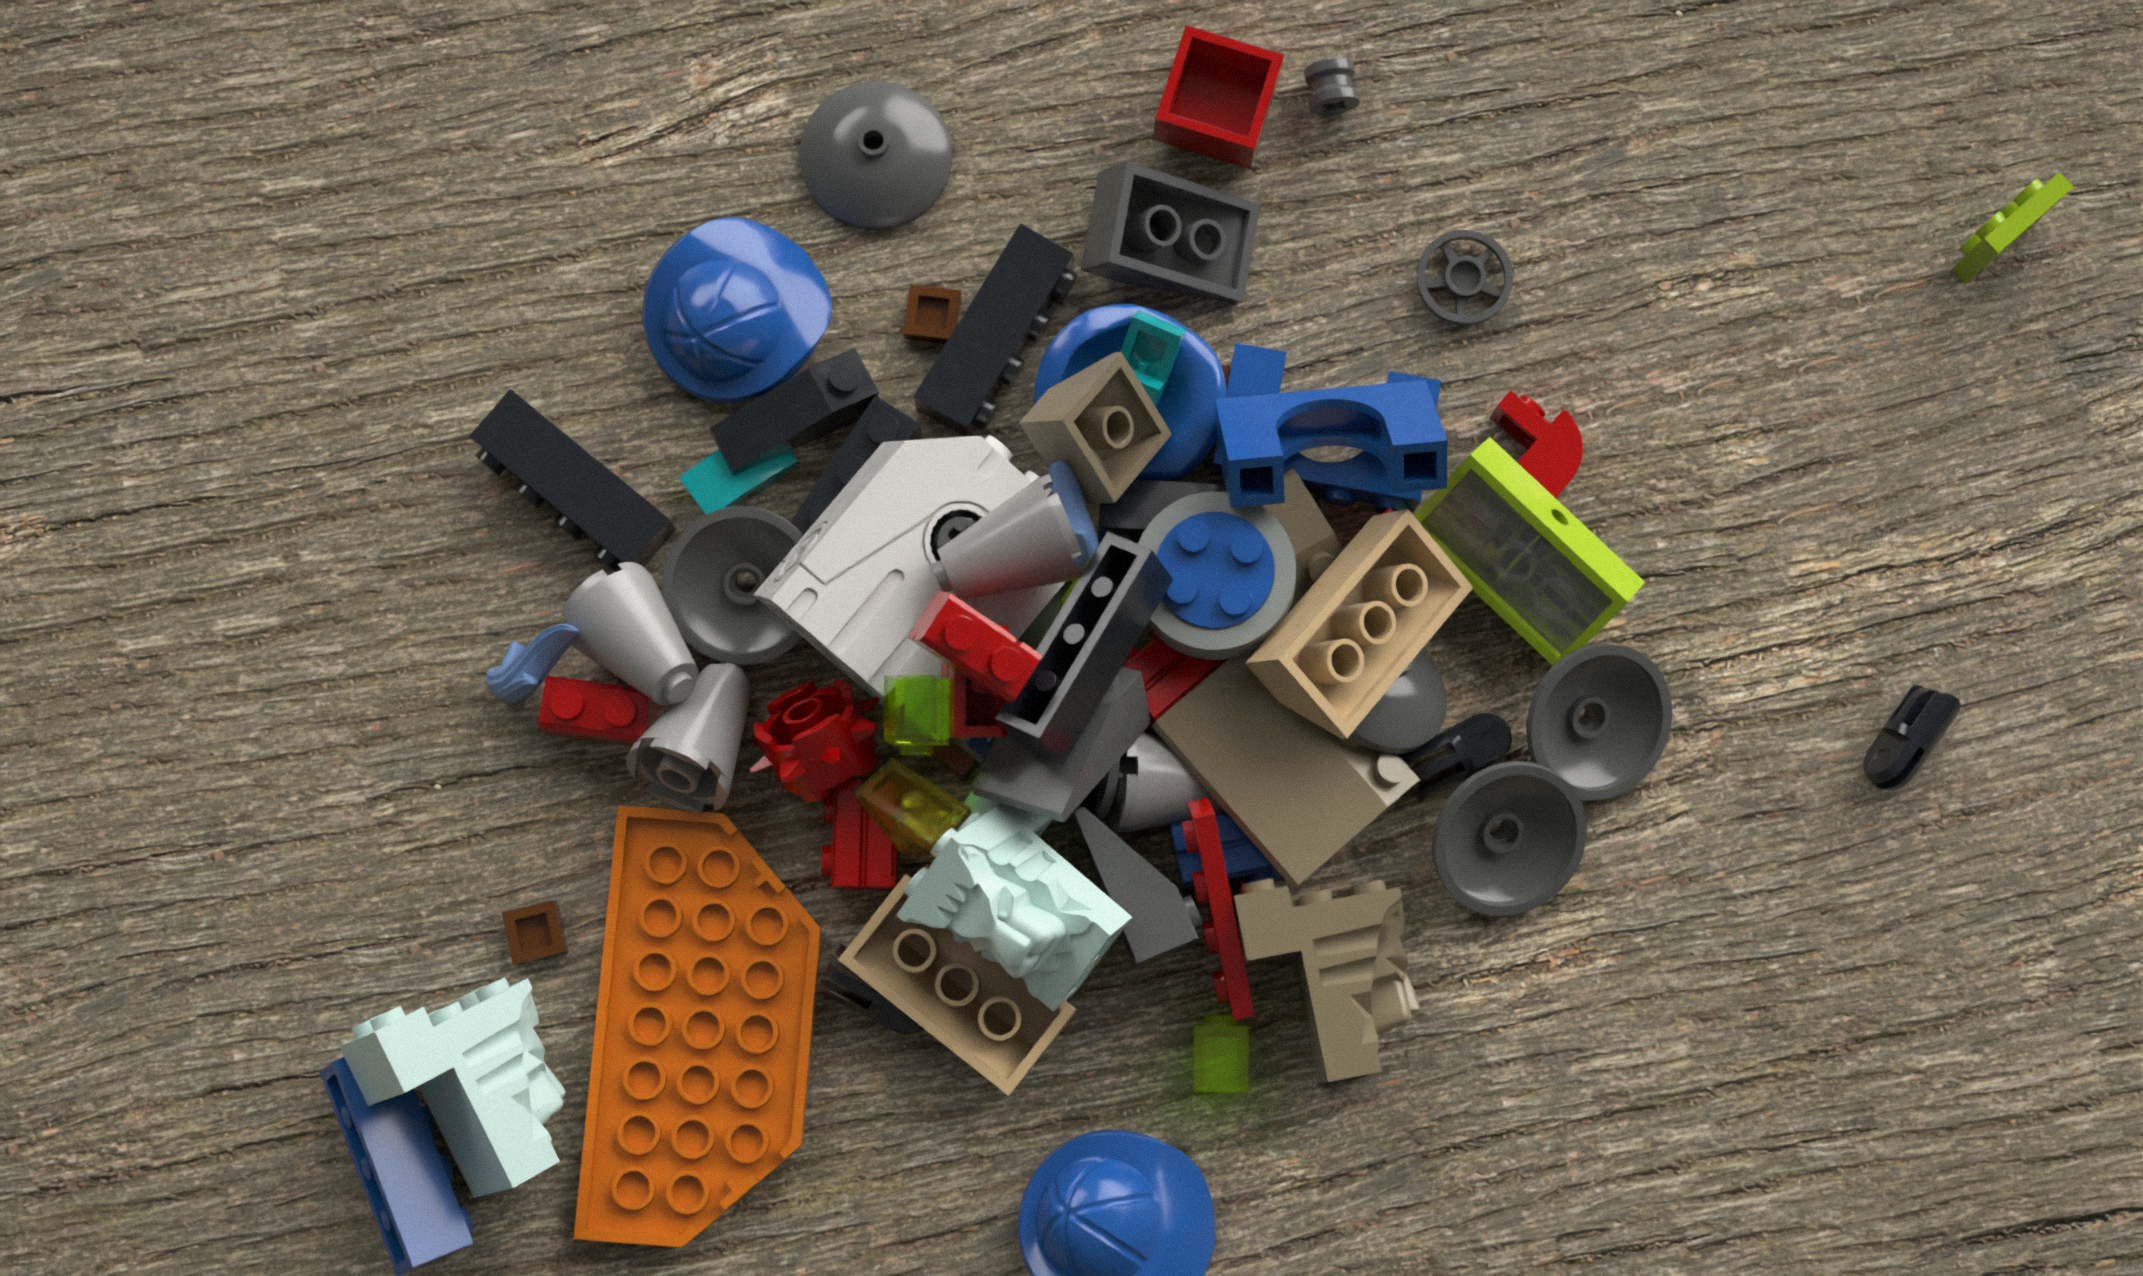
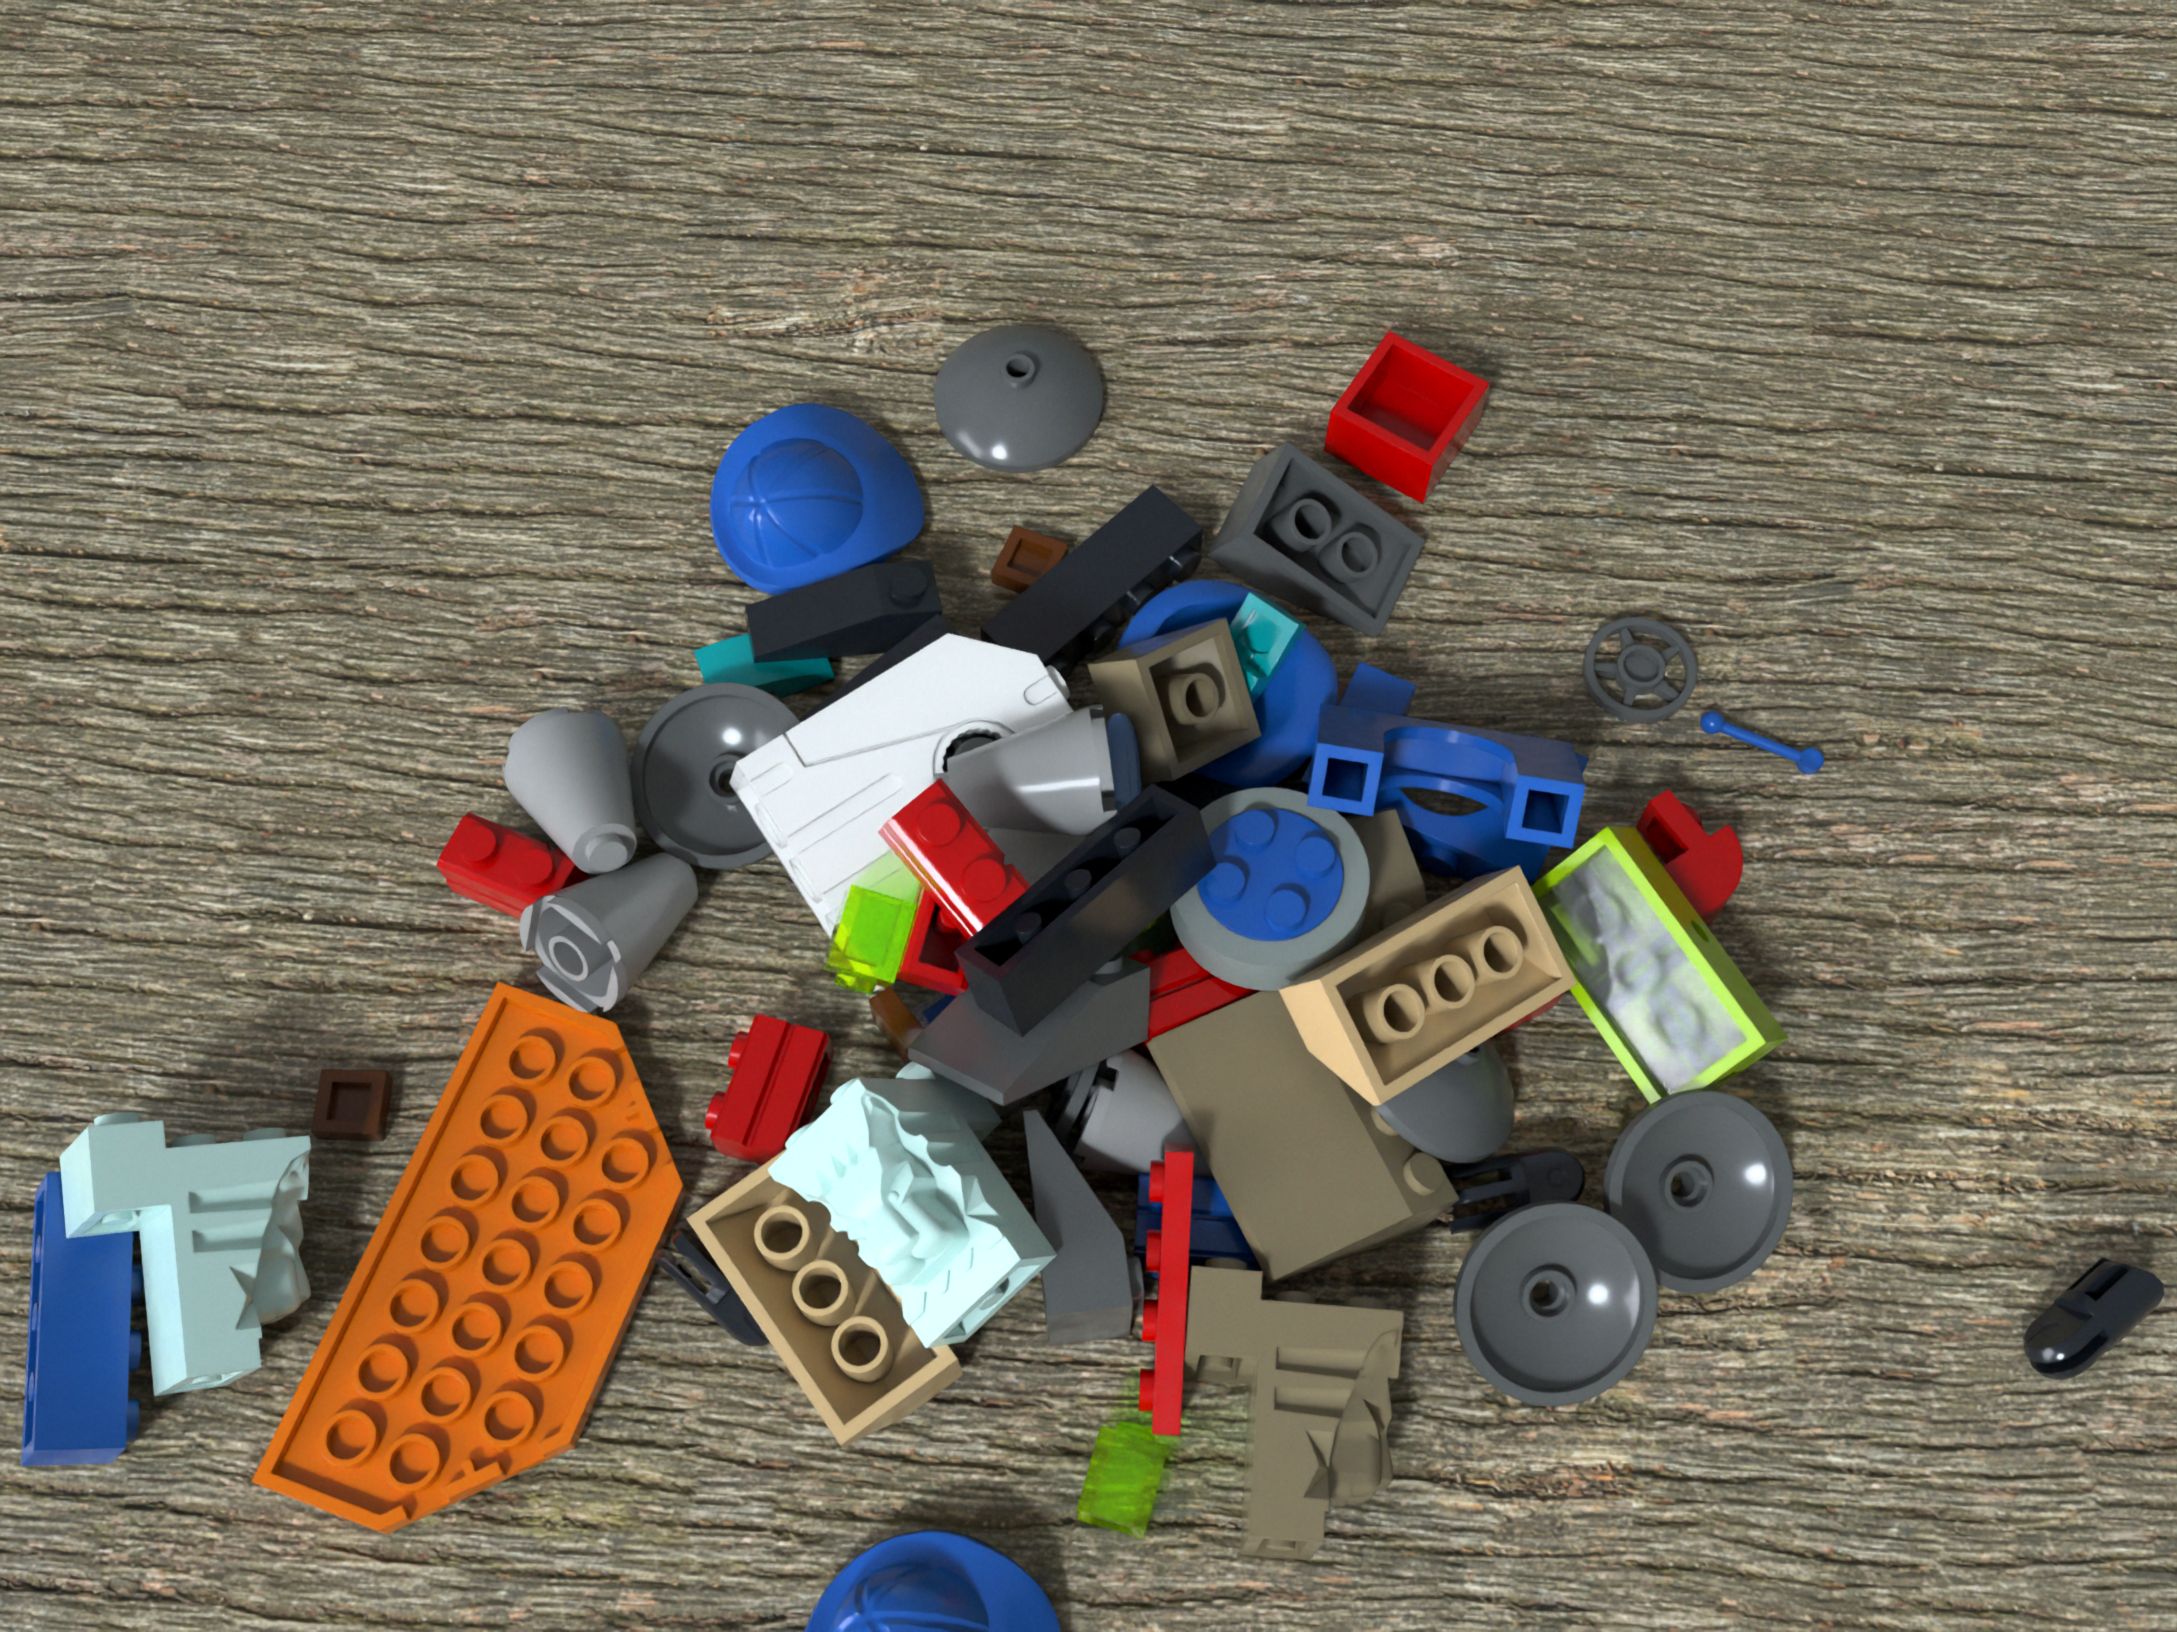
camera: 15 degrees right, 15 degrees down
(528, 665) = (438, 812): medium blue piece -> none
(571, 482) = (573, 626): black brick -> none
(817, 739) = (749, 962): red brick -> none
(910, 807) = (822, 1055): clear yellow slope -> none
(1331, 86) = (1534, 441): dark grey wheel -> none
(1617, 322) = (1807, 761): none -> blue hinge

